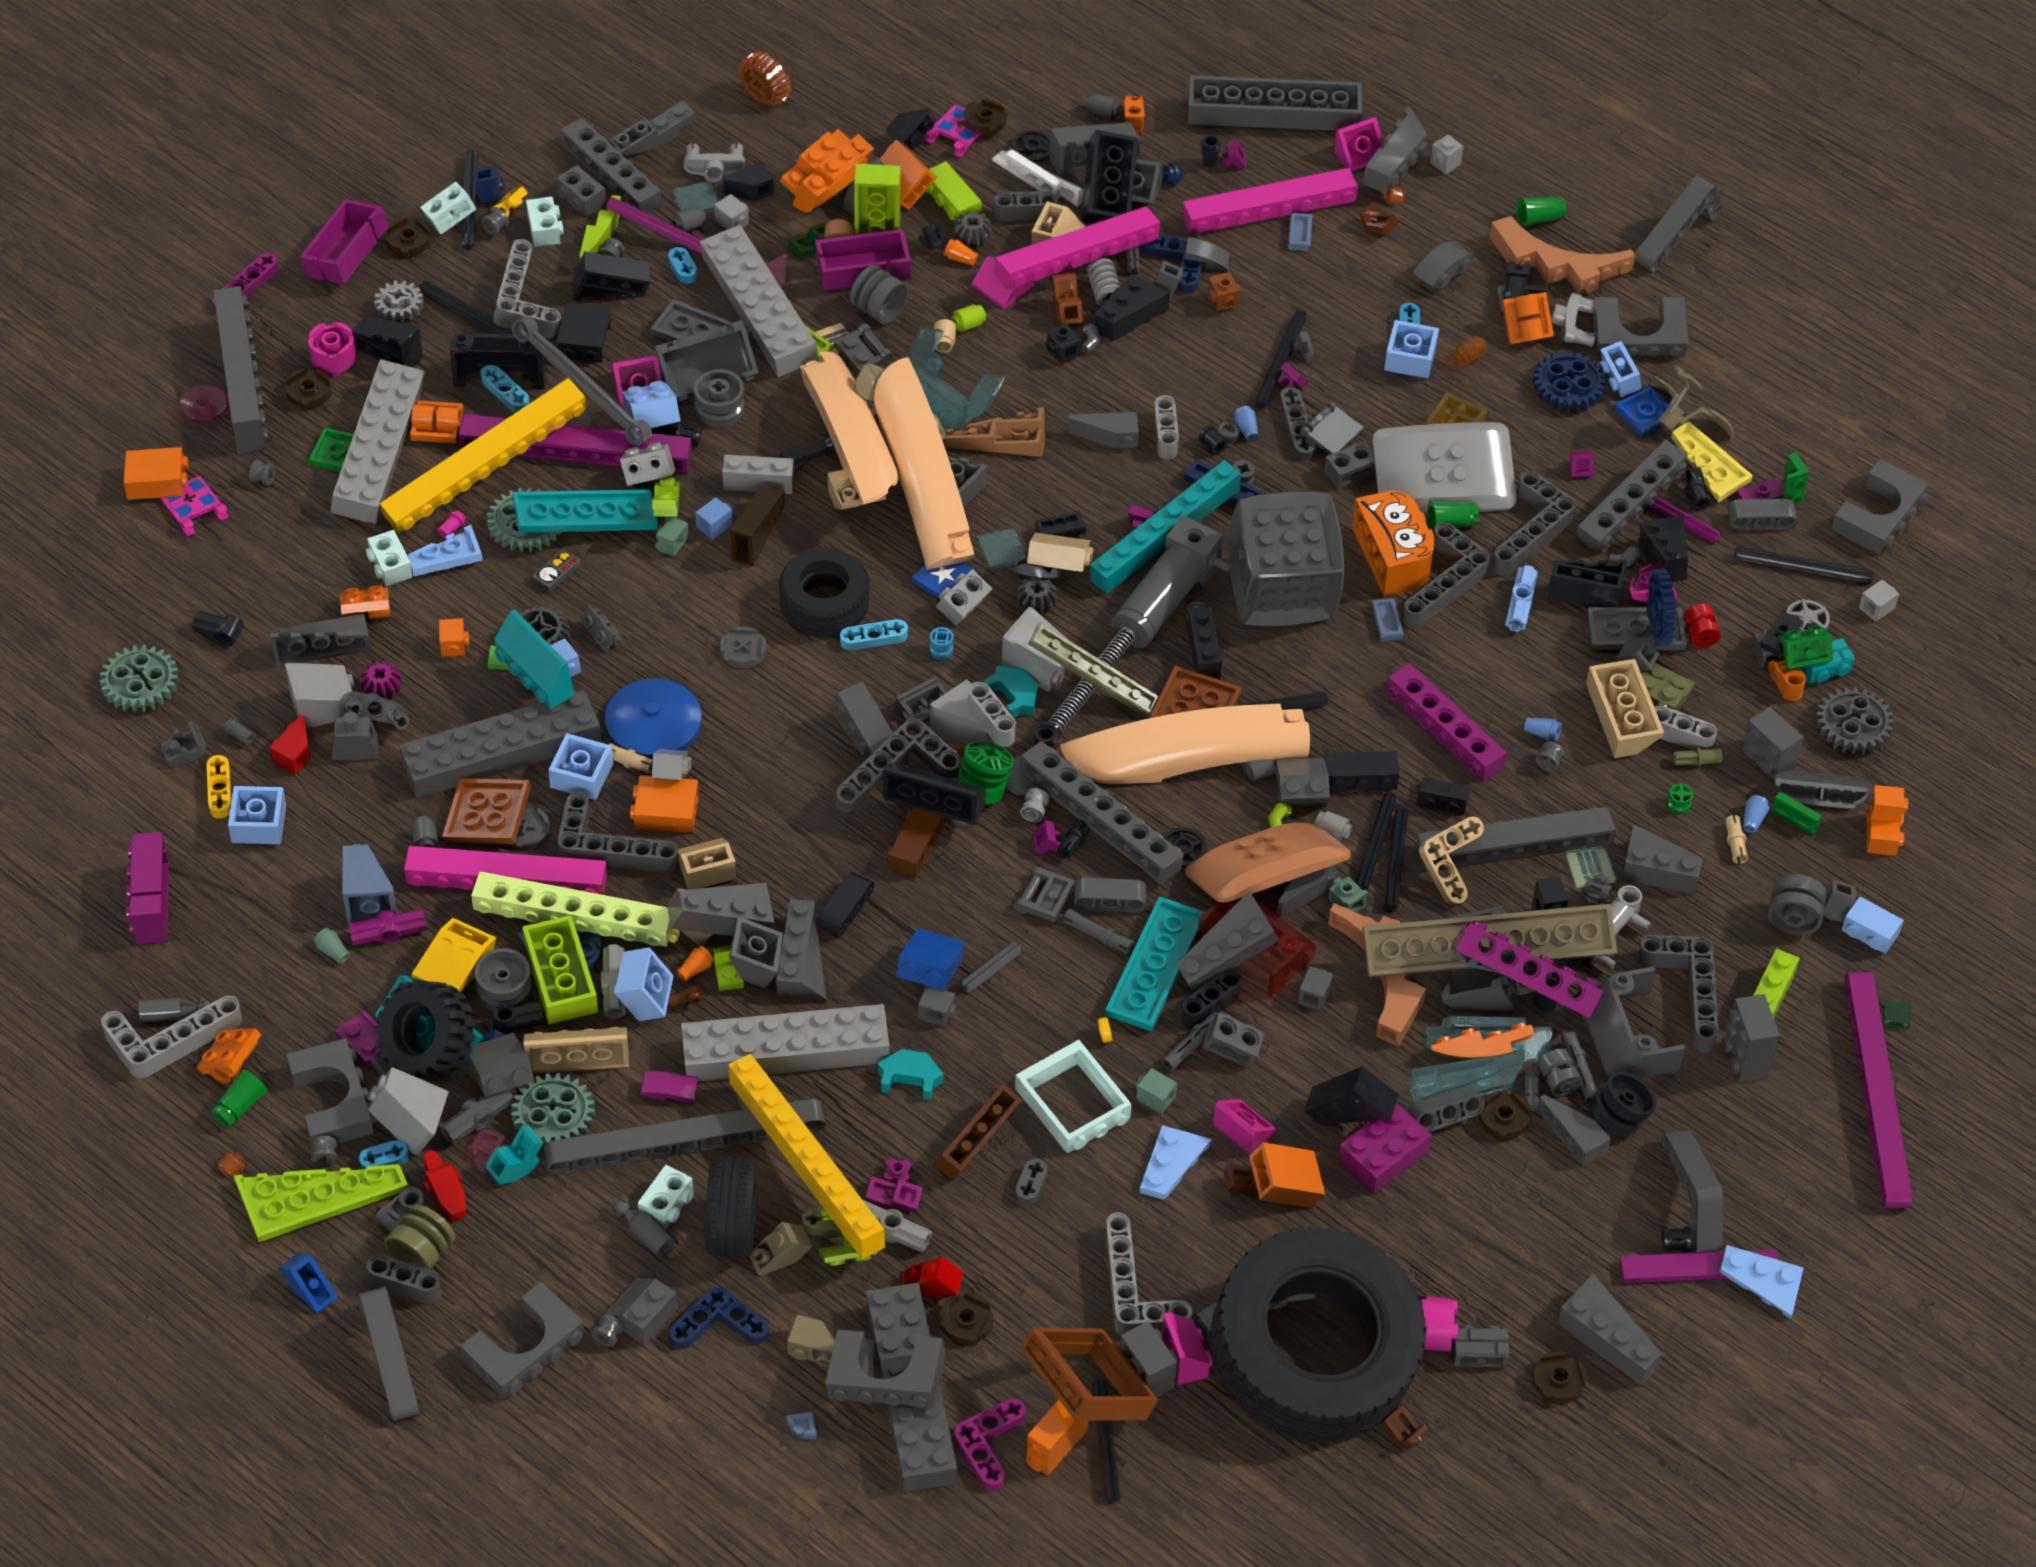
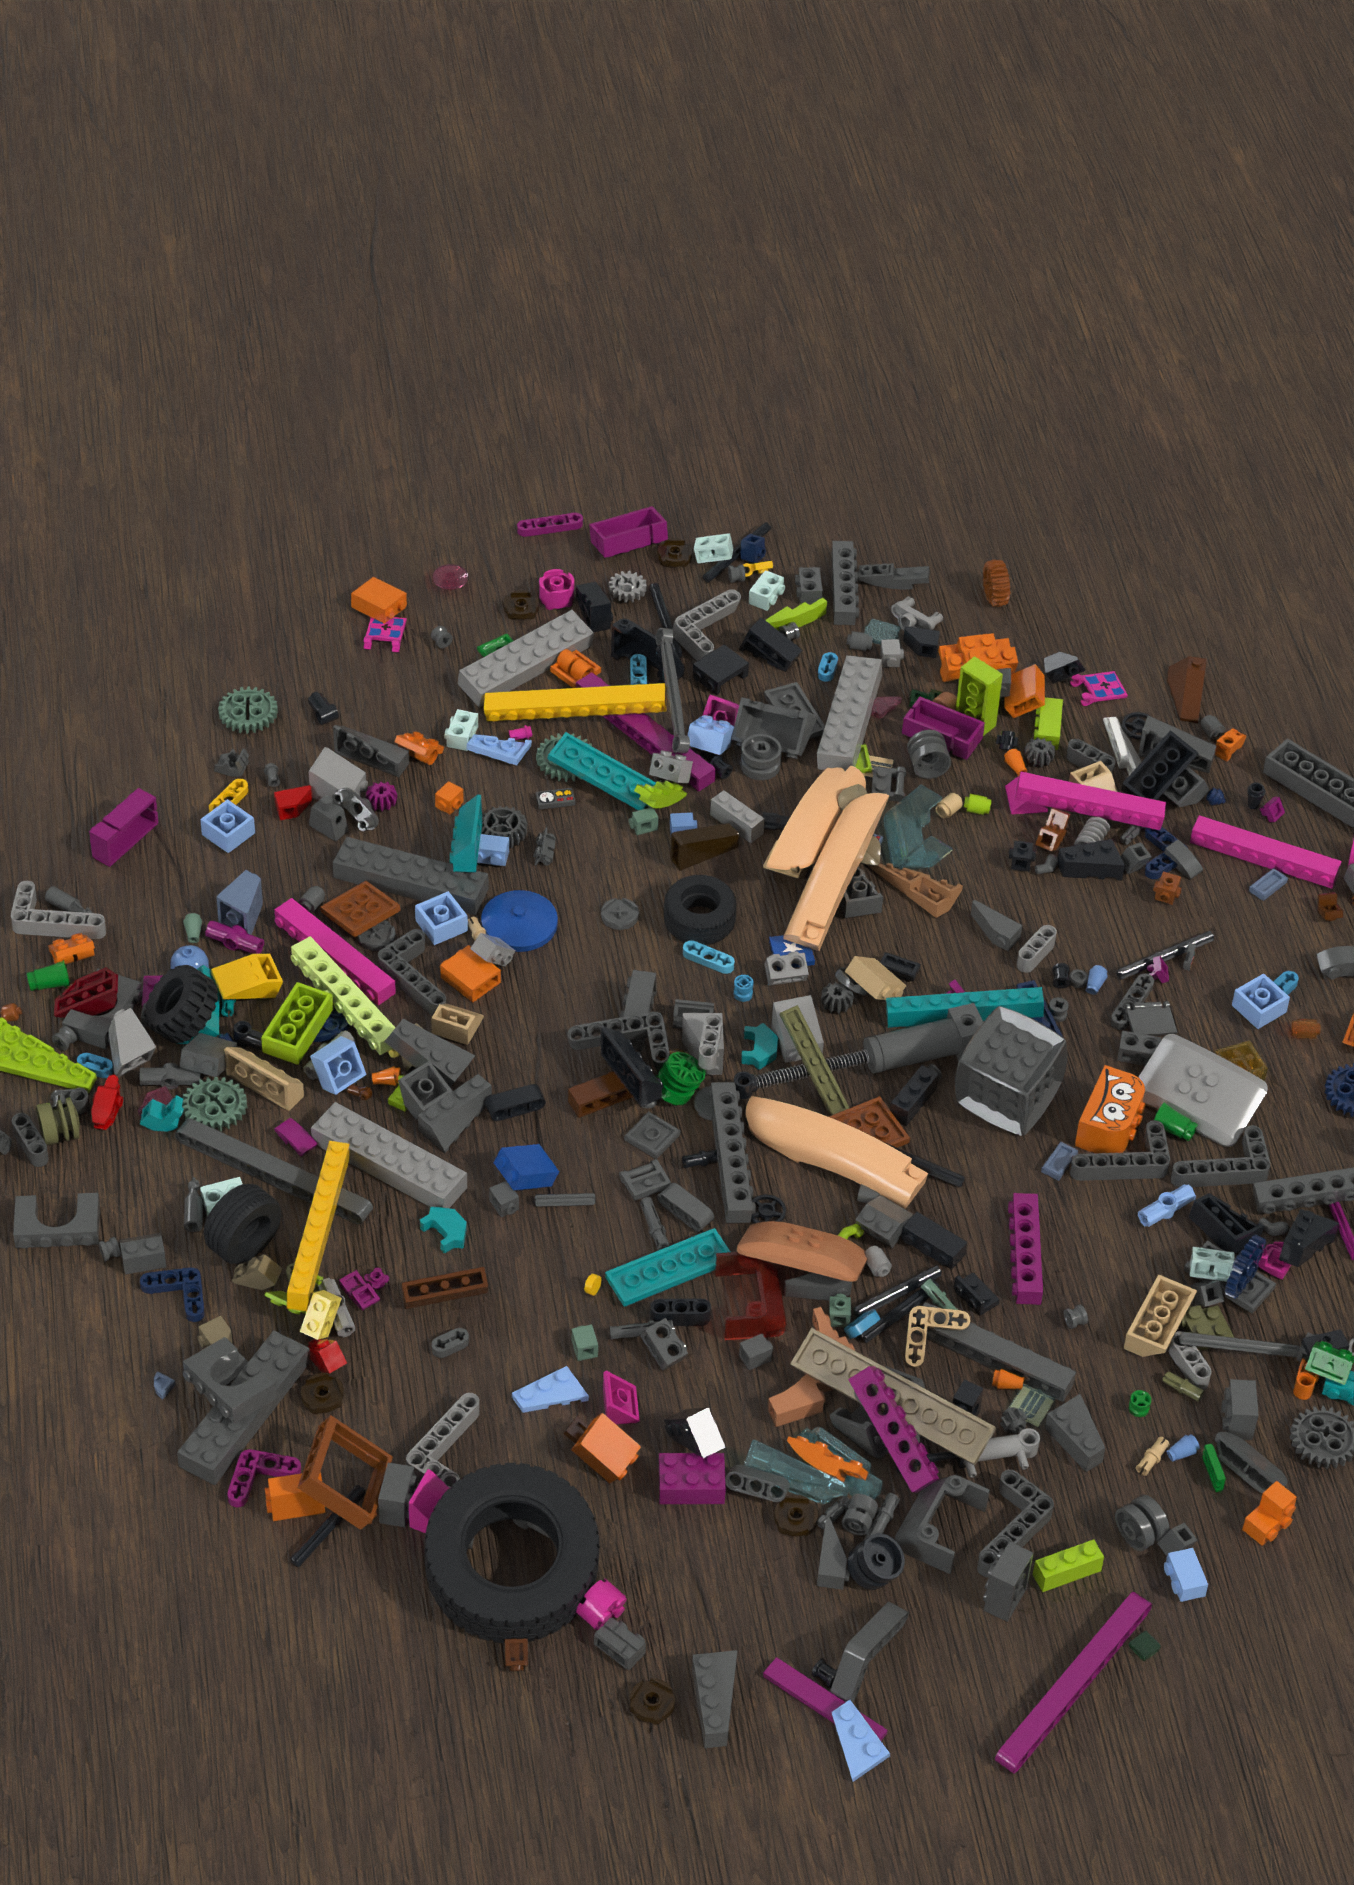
camera: 40 degrees right, 5 degrees down
(240, 370) = (487, 569): dark grey brick -> none
(310, 1084) = (89, 994): none -> dark red wedge
(368, 985) = (189, 955): none -> medium blue cylinder
(503, 978) = (261, 1005): dark grey wheel -> none
(654, 224) = (830, 627): magenta axle -> none
(898, 1244) = (320, 1314): none -> light yellow brick
(975, 117) = (1129, 690): dark brown plate -> none
(1001, 548) = (845, 953): clear light blue piece -> none
(1004, 847) = (652, 1135): none -> dark grey tile
(1034, 805) = (696, 1121): light grey wheel -> none
(1038, 76) = (1186, 686): none -> reddish brown wedge
(1045, 838) = (681, 1146): magenta tile -> none
(1057, 1064) = (529, 1283): light aqua window -> none
(1228, 944) = (720, 1282): dark grey wedge -> none
(1379, 894) = (862, 1324): none -> dark azure beam
(1407, 817) = (929, 1287): none -> sand green pin
(1544, 728) = (1093, 1298): medium blue cone -> none
(1551, 858) = (1006, 1380): none -> orange cone
(1581, 464) = (1306, 1148): magenta tile -> none
(1622, 626) = (1211, 1264): none -> light aqua brick
(1702, 626) = (1277, 1304): red wheel -> none
(1710, 685) = (1239, 1344): none -> dark grey axle

